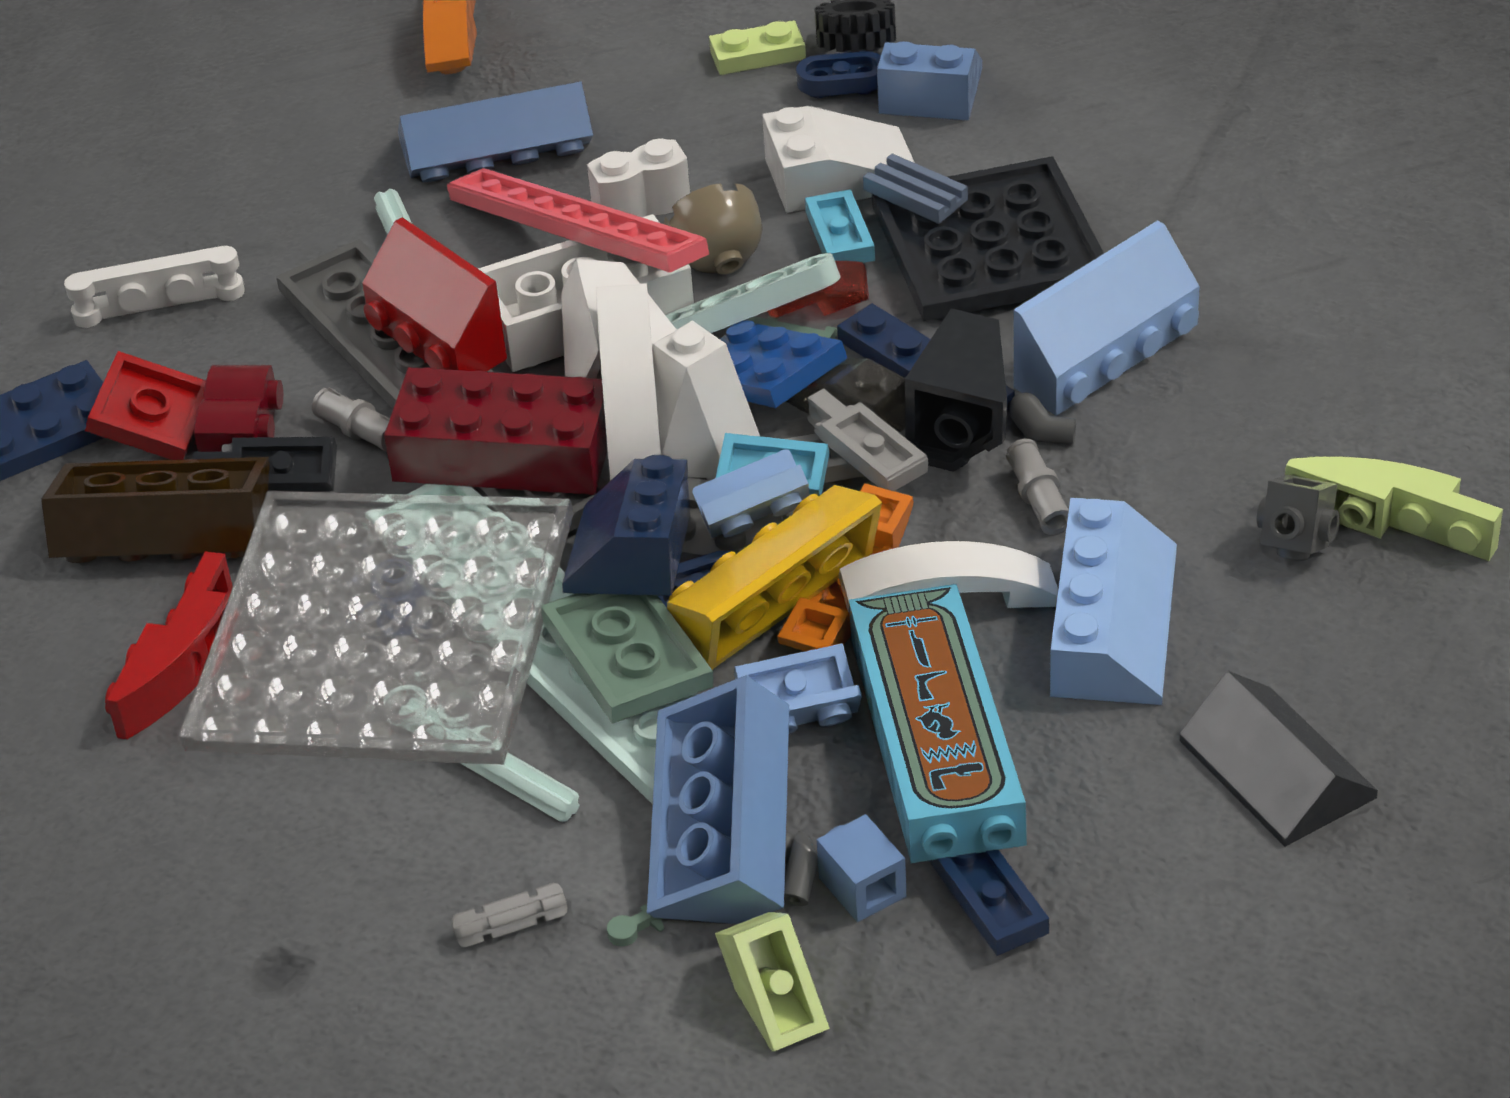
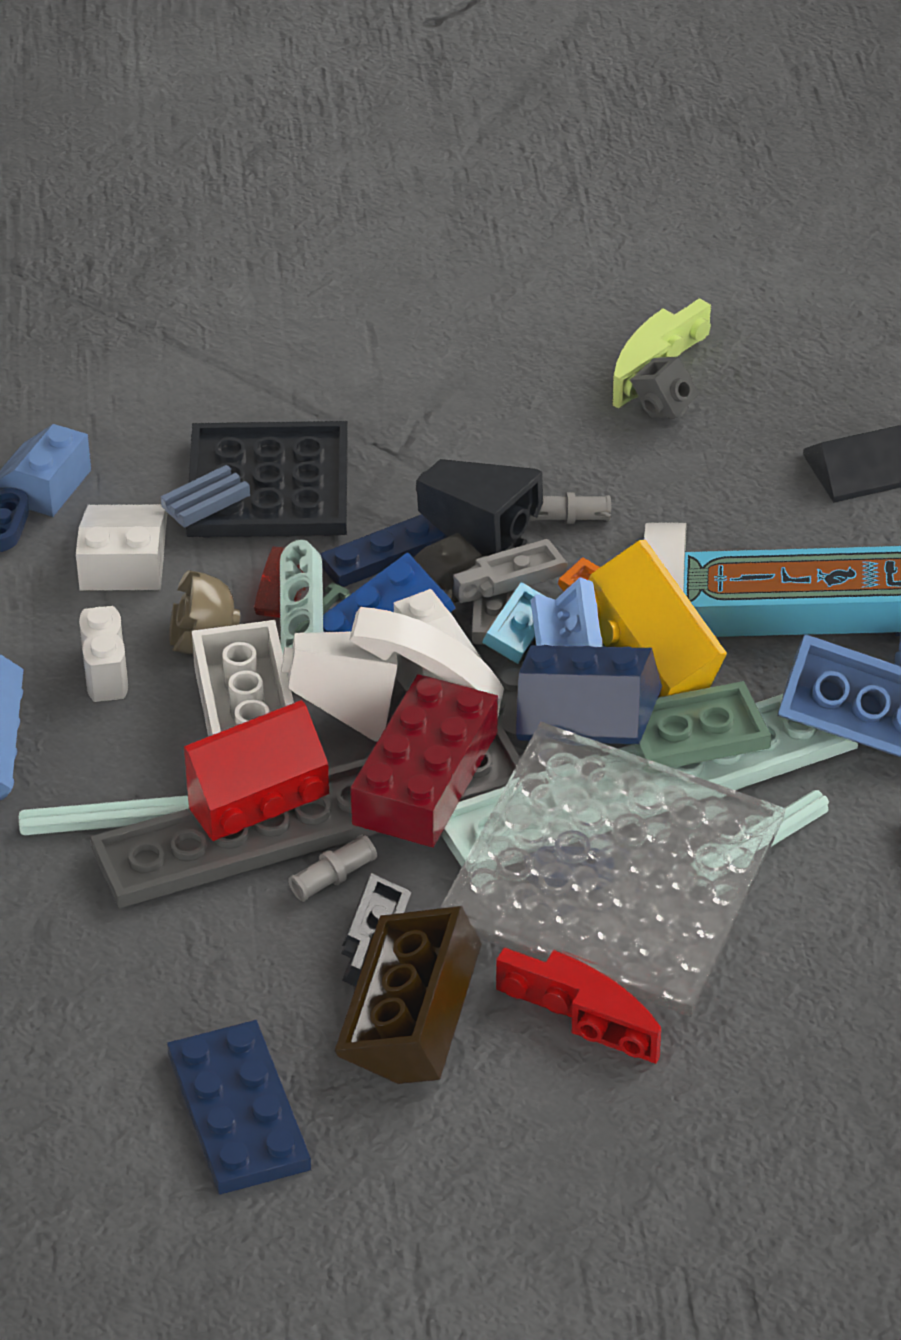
camera: 80 degrees left, 0 degrees up
(147, 406) = (268, 994): red plate -> none
(154, 284) = (82, 995): white plate -> none
(237, 405) = (292, 942): dark red brick -> none
(579, 220) = (171, 679): coral tile -> none
(812, 683) = (753, 658): light blue bracket -> none
(840, 226) = (216, 554): medium azure plate -> none
(1104, 319) = (408, 421): light blue slope -> none
(1112, 605) = (706, 502): light blue slope -> none

